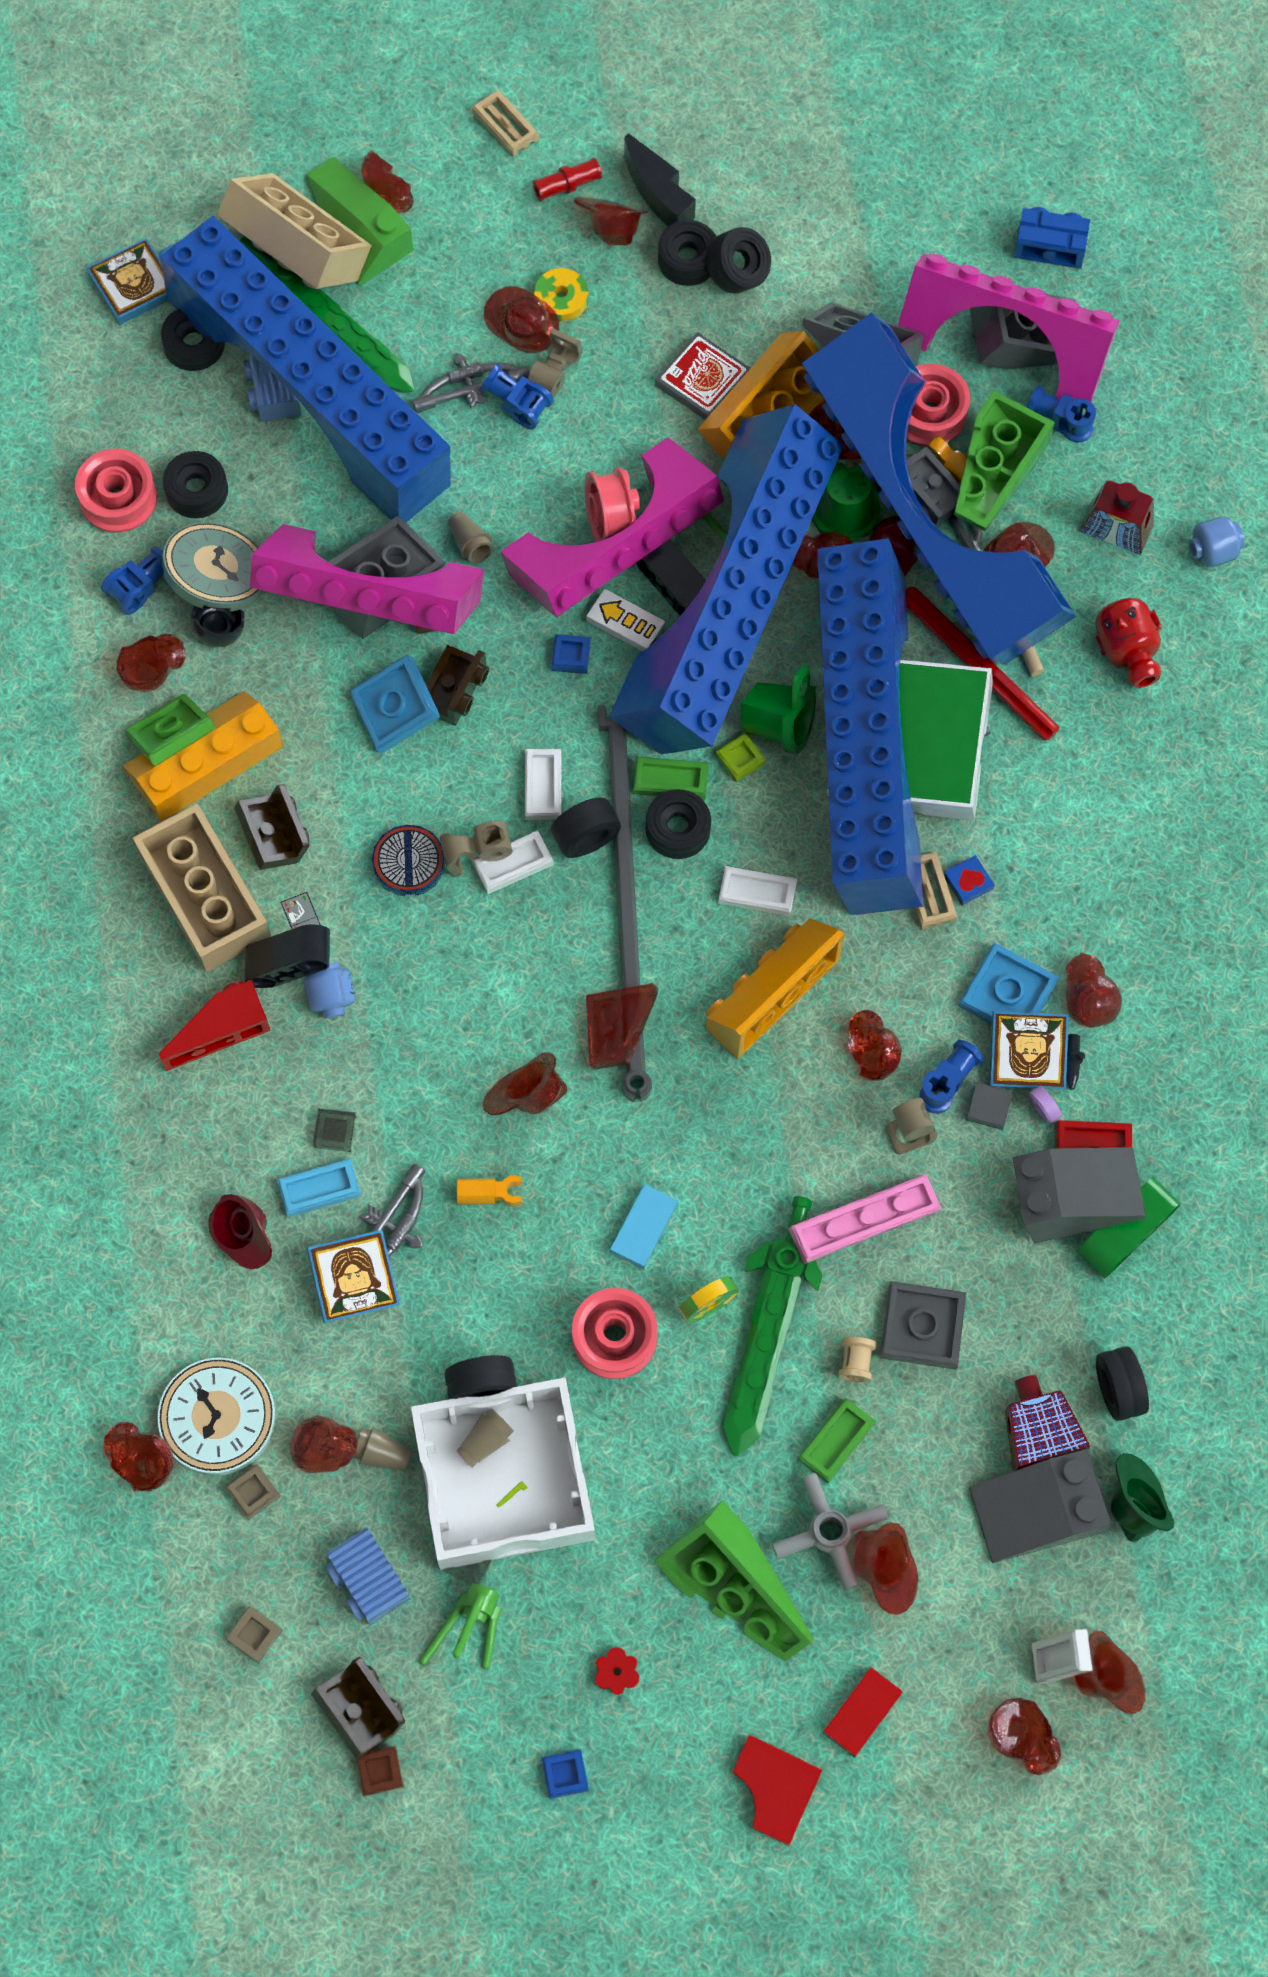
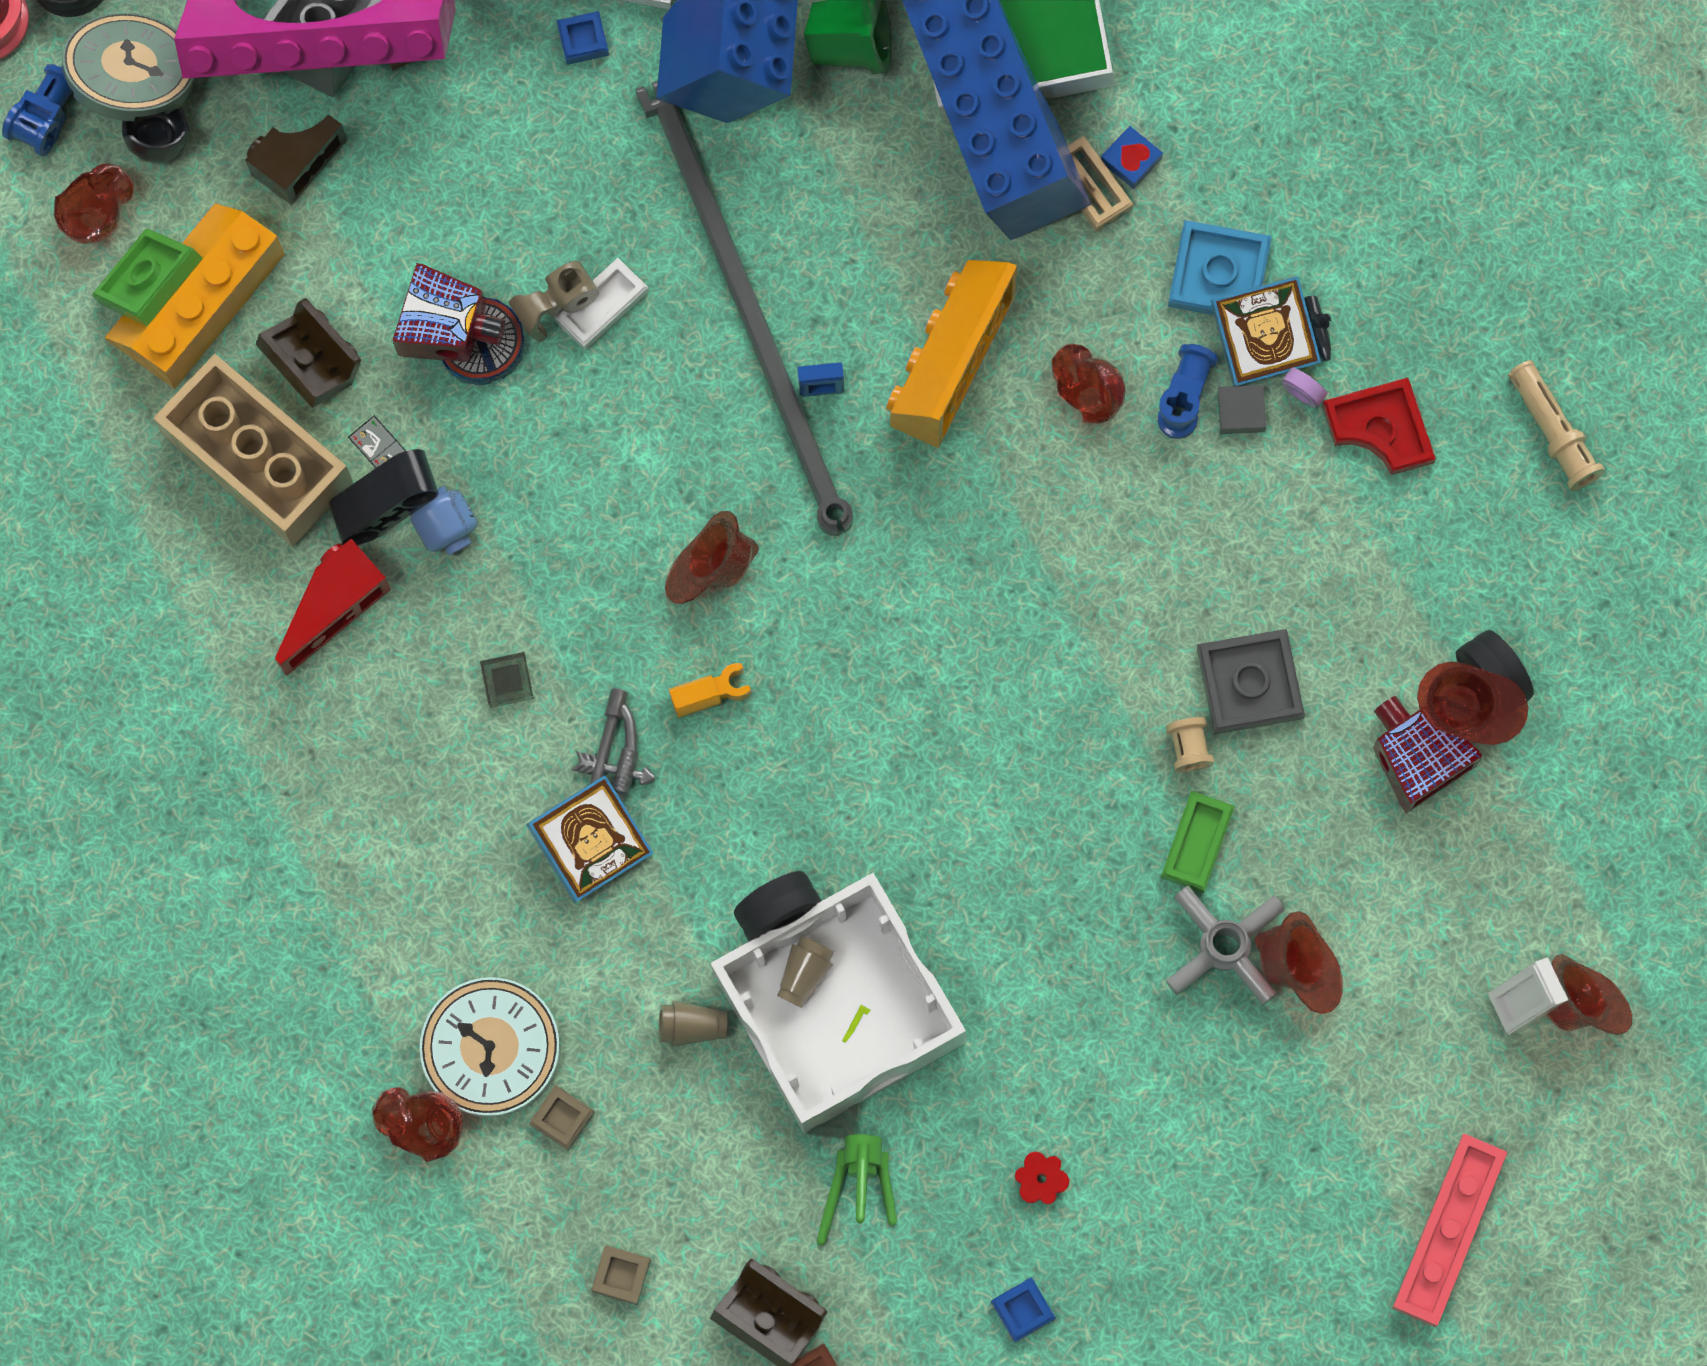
camera: 15 degrees left, 5 degrees up
(226, 1226) = (457, 844): dark red piece -> none
(316, 676) = (293, 160): none -> dark brown arch
(319, 1187) = (512, 751): medium azure tile -> none
(322, 1445) = (623, 1039): clear red hair -> none
(367, 1576) = (726, 1168): medium blue brick -> none
(384, 833) = (443, 318): none -> torso
(394, 704) = (399, 162): dark azure tile -> none
(455, 681) = (457, 118): dark brown bracket -> none
(542, 784) = (604, 201): white tile -> none
(585, 827) = (674, 237): black tyre -> none
(617, 1023) = (789, 452): clear red wing -> none
(621, 1357) = (909, 834): coral wheel -> none
(644, 1226) = (898, 674): medium azure tile -> none
(660, 775) = (749, 147): bright green tile -> none
(662, 974) = (821, 379): none -> blue tile
(682, 804) = (772, 174): black tyre -> none
(708, 1299) = (1002, 732): piece -> none
(731, 1572) = (1129, 1026): bright green wedge -> none
(740, 757) = (821, 97): lime tile -> none
(757, 891) = (894, 247): white tile -> none
(767, 1332) = (1079, 740): green sword -> none
(778, 1785) = (1263, 1243): red tile -> none
(862, 1712) = (1328, 1131): red tile -> none
(864, 1219) = (1145, 583): bright pink tile -> none
(914, 1124) = (1166, 459): dark tan leg -> none
(934, 1828) = (1449, 1230): none -> coral plate
(1024, 1734) = (1514, 1095): clear red hair -> none
(1040, 1506) = (1448, 840): dark grey slope -> none
(1077, 1190) = (1375, 473): dark grey slope -> none
(1091, 995) = (1313, 244): clear red hair -> none
(1093, 1401) = (1472, 703): none -> clear red piece
(1114, 1244) = (1443, 496): green beam -> none
(1140, 1500) = (1555, 796): dark green piece -> none
(1241, 1215) = (1564, 441): none -> tan pin

